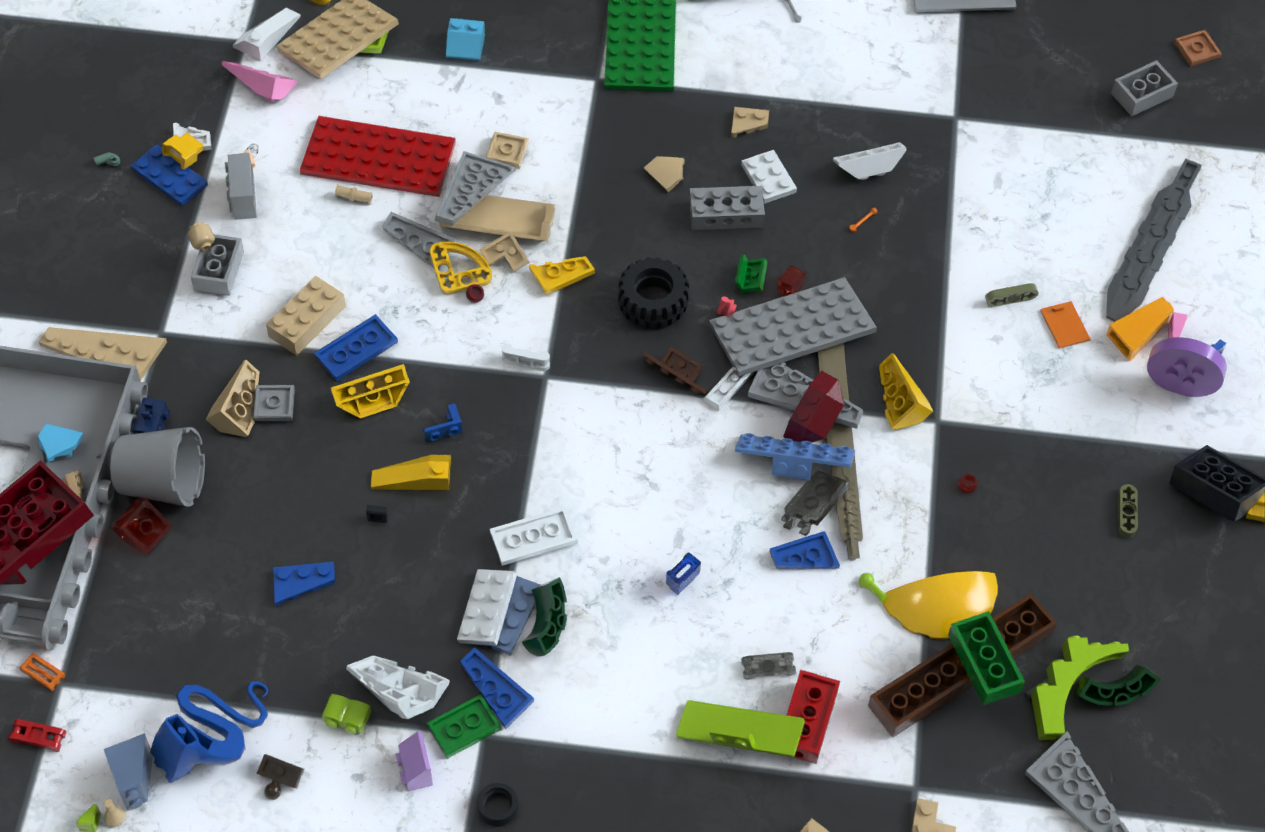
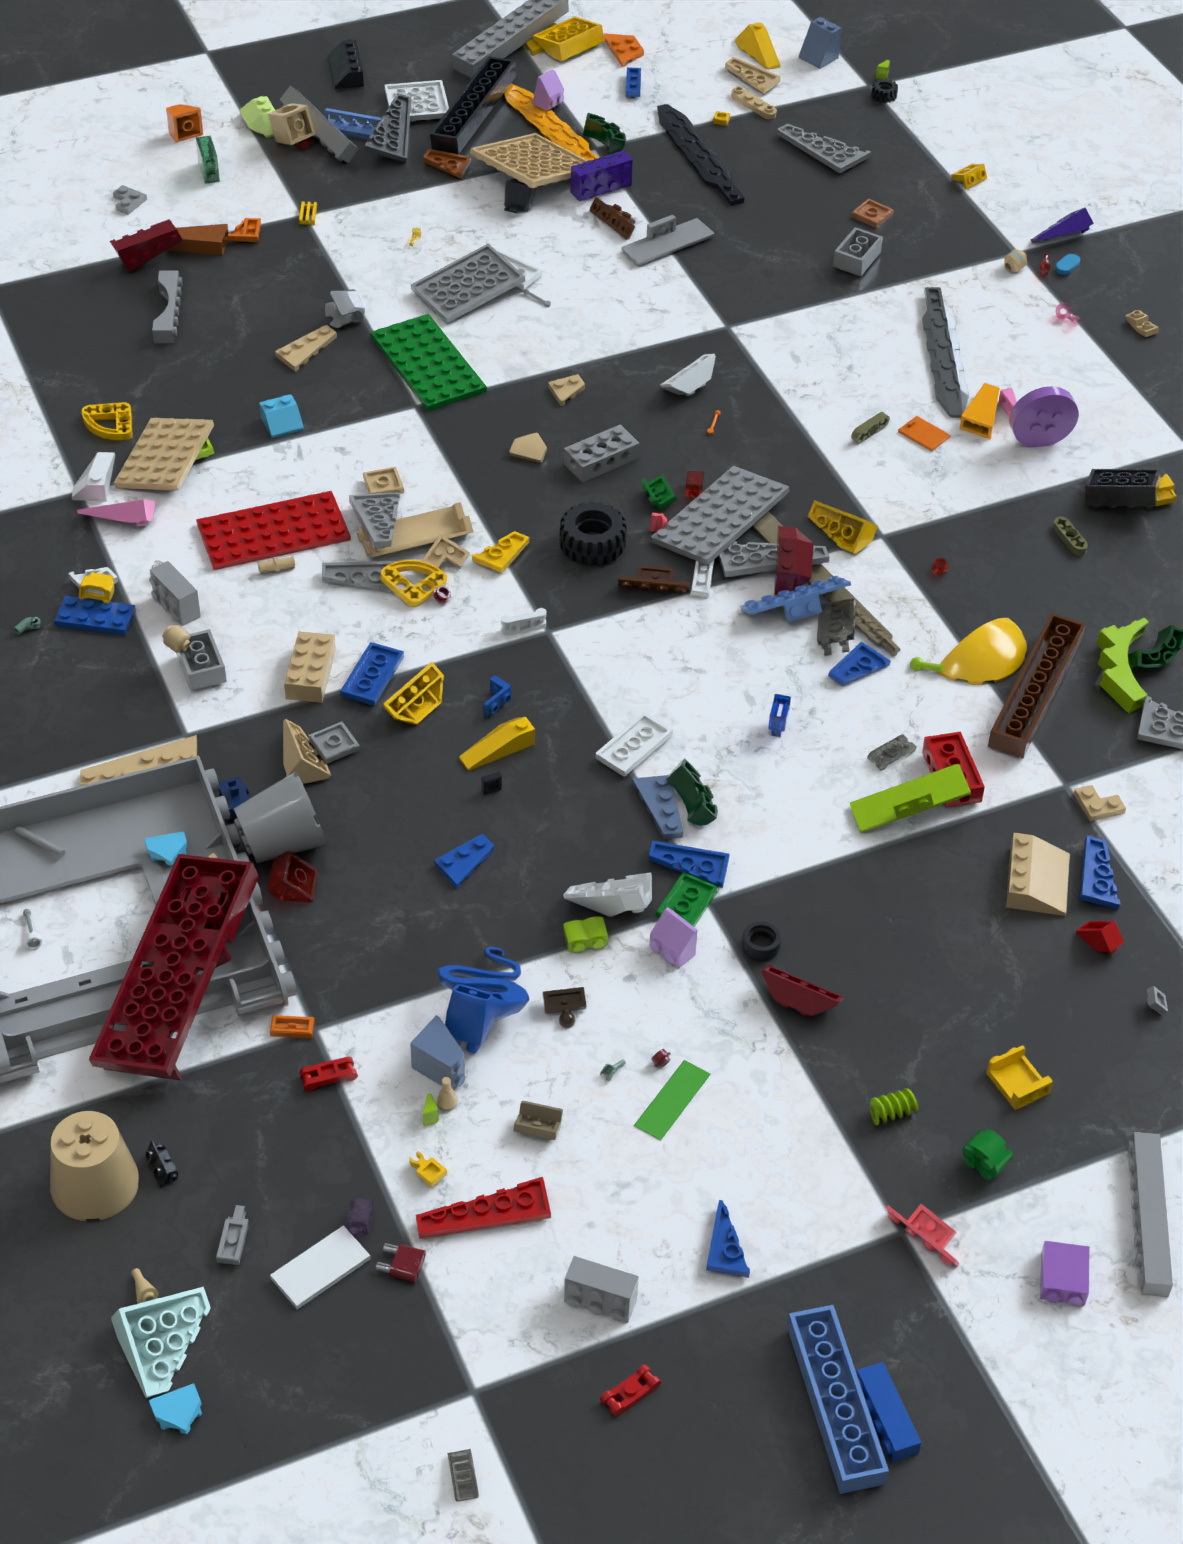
camera: 30 degrees left, 10 degrees down
(487, 607) = (638, 809): white plate -> none
(769, 173) = (609, 415): white plate -> none
(986, 658) = (1058, 664): green brick -> none

